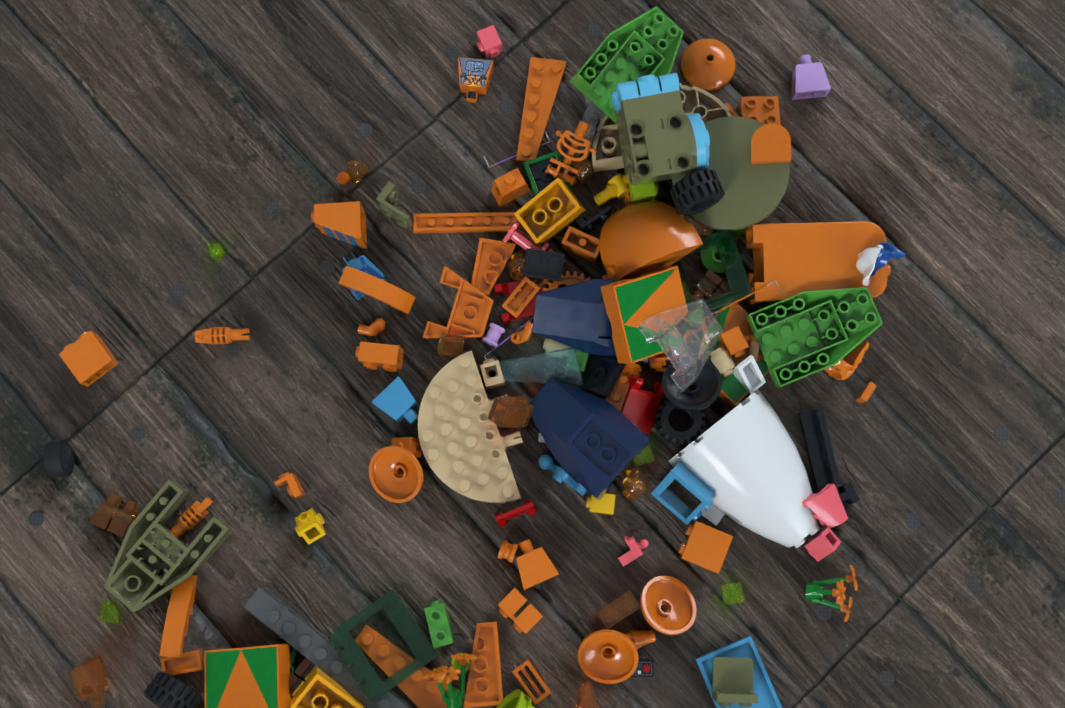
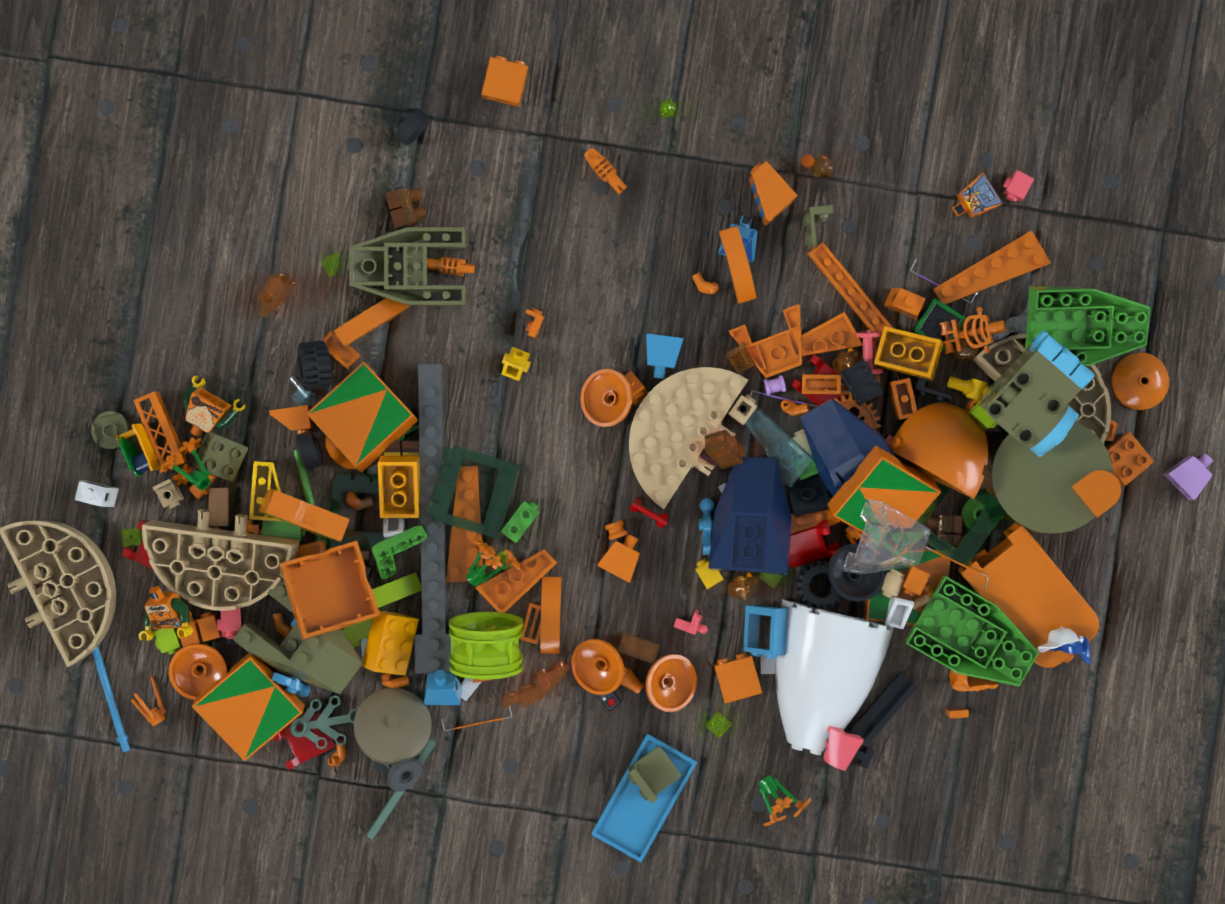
camera: 50 degrees right, 10 degrees up
(380, 355) = (688, 311): orange brick -> none
(526, 618) = (575, 583): orange piece -> none
(535, 662) = (550, 615): none -> orange slope
(697, 192) = (1012, 462): black tyre -> none
(822, 544) = (809, 765): coral brick -> none

